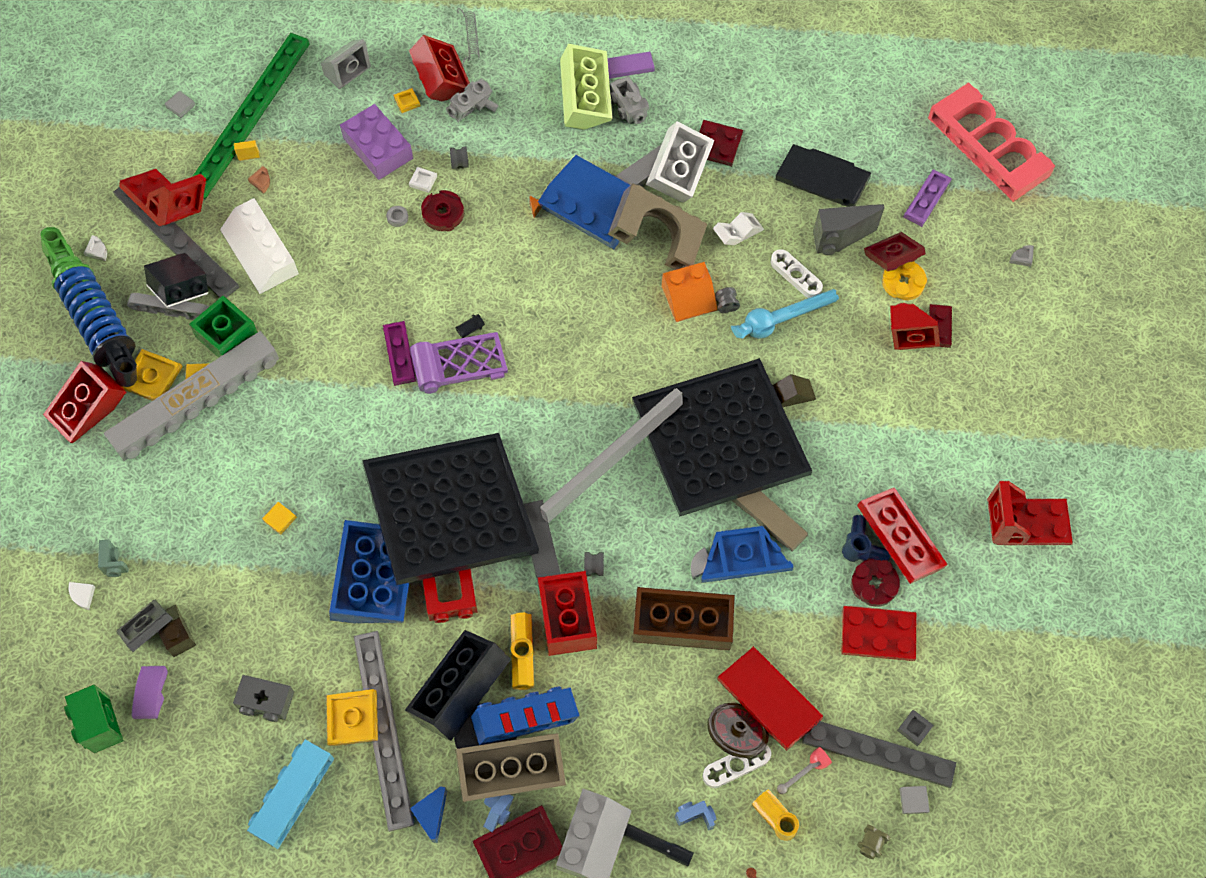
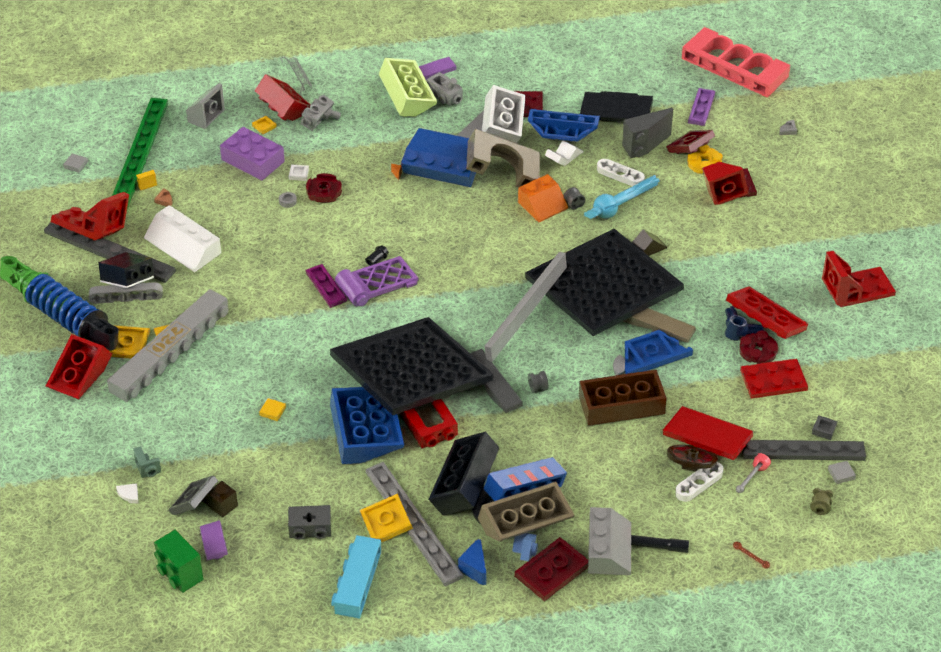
camera: 15 degrees left, 20 degrees down
(96, 249) = (43, 267): white tile -> none
(222, 327) = (176, 293): green brick -> none
(459, 157) = (323, 151): dark grey wheel -> none
(522, 665) = (507, 451): yellow piece -> none
(567, 613) = (531, 414): red slope -> none
(689, 812) = (679, 514): medium blue bracket -> none
(746, 192) = (562, 125): none -> blue wedge
(774, 813) = (749, 504): yellow piece -> none

